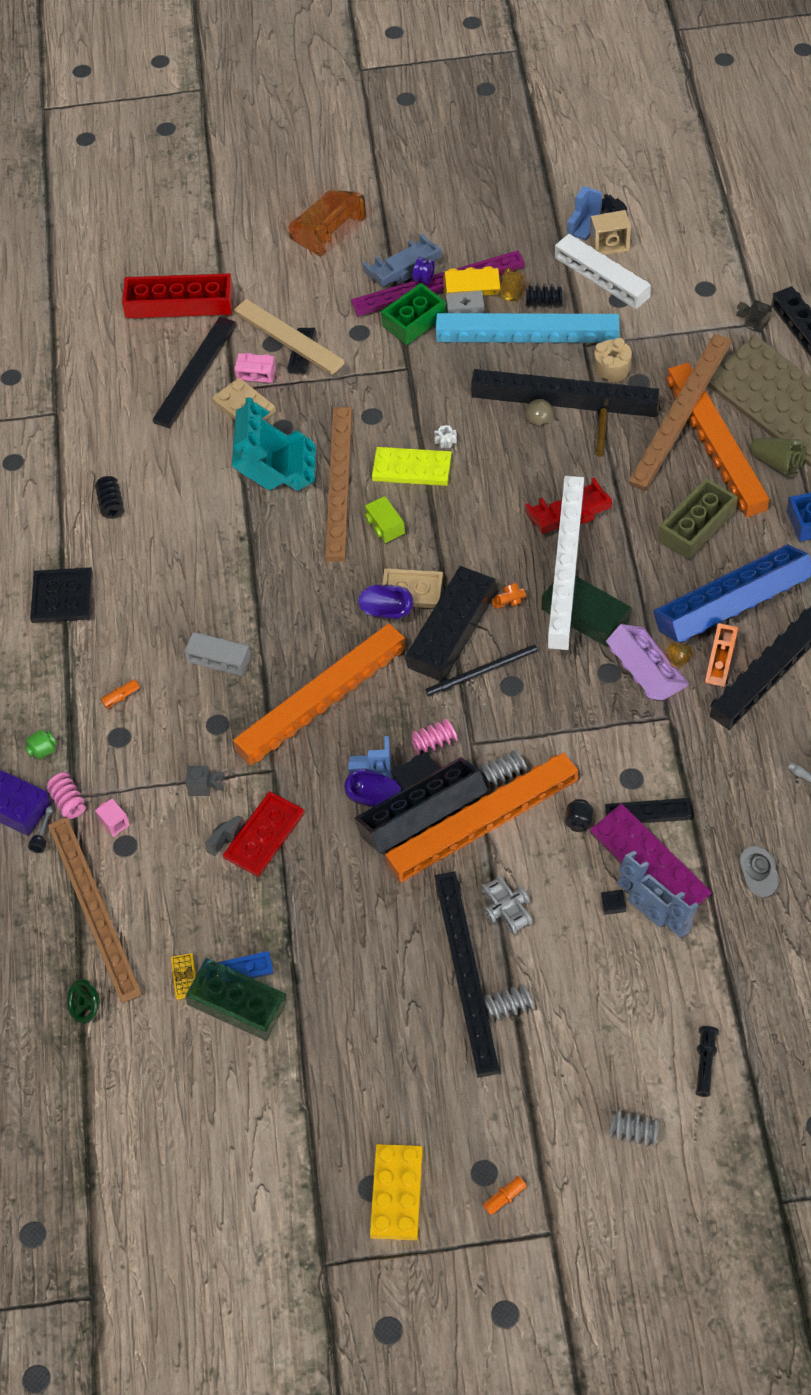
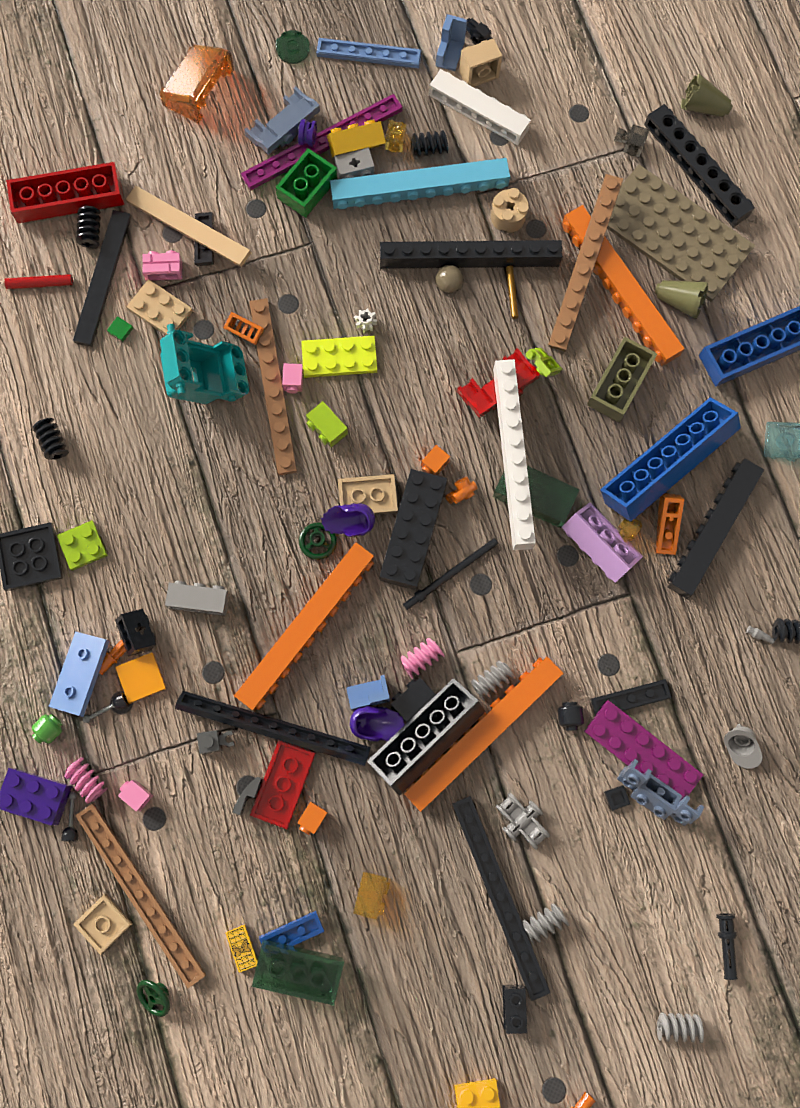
camera: 20 degrees left, 20 degrees up
(49, 931) = (102, 924): none -> tan tile
(84, 701) = (79, 674): none -> plate
(116, 594) = (82, 545): none -> lime plate
(117, 734) = (119, 702): none -> hinge
(133, 367) = (38, 281): none -> red piece
(144, 716) = (140, 677): none -> light orange tile
(149, 672) = (136, 632): none -> black brick
(192, 327) = (87, 227): none -> black piece
(200, 416) = (120, 329): none -> green tile
(272, 782) = (273, 728): none -> black plate
(286, 866) = (312, 818): none -> orange brick
(310, 422) = (231, 322): none -> orange slope
(329, 946) = (370, 895): none -> clear yellow brick
(351, 620) = (317, 534): none -> dark green piece
(360, 476) = (292, 378): none -> bright pink brick
(428, 203) = (292, 47): none -> clear green tile
(457, 1078) = (514, 1009): none -> black hinge
(489, 564) = (435, 461): none -> orange brick
(502, 216) = (368, 53): none -> medium blue tile
(618, 493) = (545, 364): none -> lime plate

